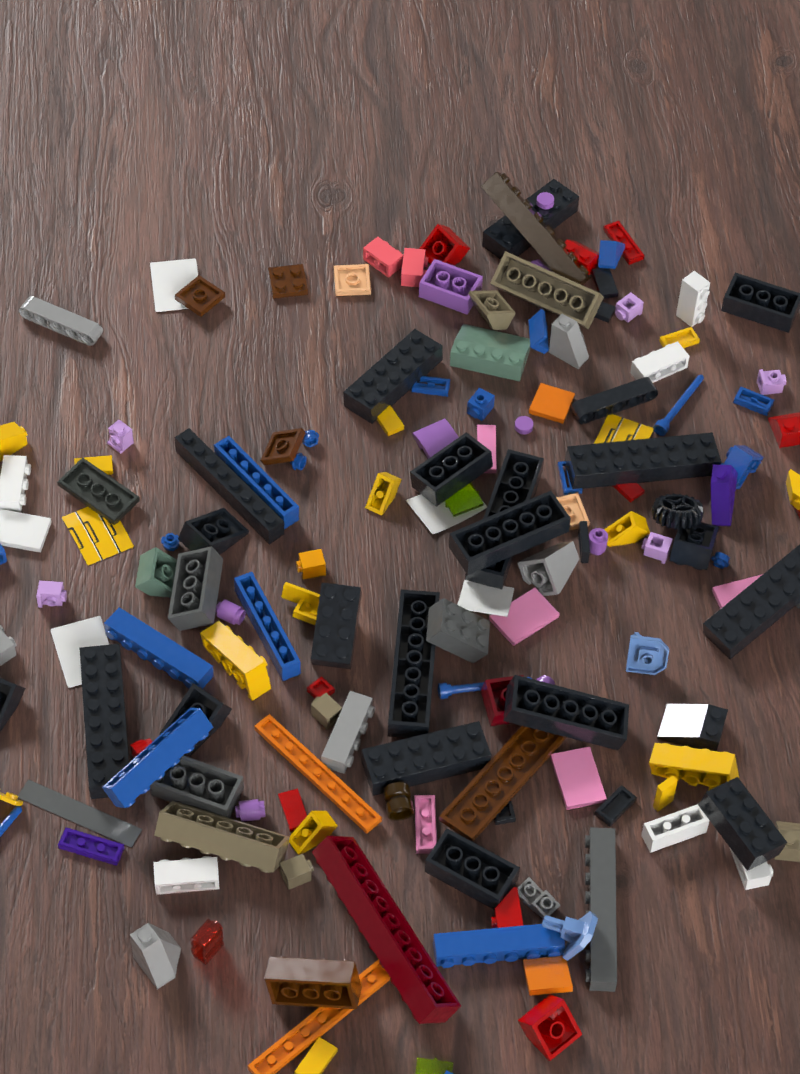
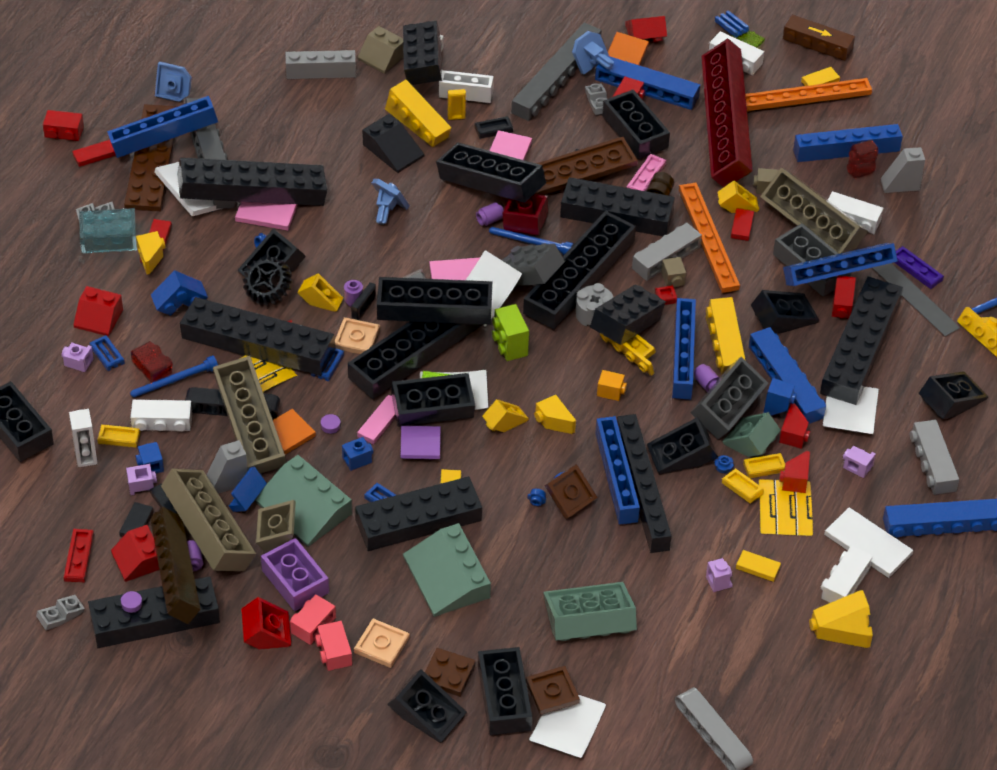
camera: 150 degrees left, 5 degrees down
(98, 491) = (768, 533): pearl dark grey tile -> none
(100, 553) = (796, 473): none -> red slope
(123, 596) = (795, 428): none -> red slope
(130, 560) = (764, 465): none -> yellow tile
(143, 528) = (742, 485): none -> yellow tile
(149, 606) = (779, 397): none -> blue slope
(209, 365) = (590, 611): none -> sand green slope
(233, 274) = (504, 691): none -> black brick
(236, 968) = (838, 143): none -> blue brick
(250, 810) = (775, 230): medium lavender brick -> none
(286, 245) = (427, 706): none -> black slope
(313, 982) = (801, 98): reddish brown brick -> none
(337, 348) = (448, 571): none -> sand green slope
(341, 513) = (555, 415): none -> yellow slope
(376, 634) = (588, 300): none -> light grey brick
(428, 1041) = (751, 56): none -> white brick
(430, 561) = (510, 332): none -> lime brick
(584, 375) = (249, 414): none -> dark tan brick
(599, 198) = (64, 611): none -> light grey slope
(610, 253) = (105, 537): blue slope -> none
(636, 327) = (151, 455): none -> blue brick
(657, 547) = (309, 269): lavender brick -> none
(709, 403) = (151, 361): none -> clear red brick
(723, 494) = (215, 275): dark purple slope -> none

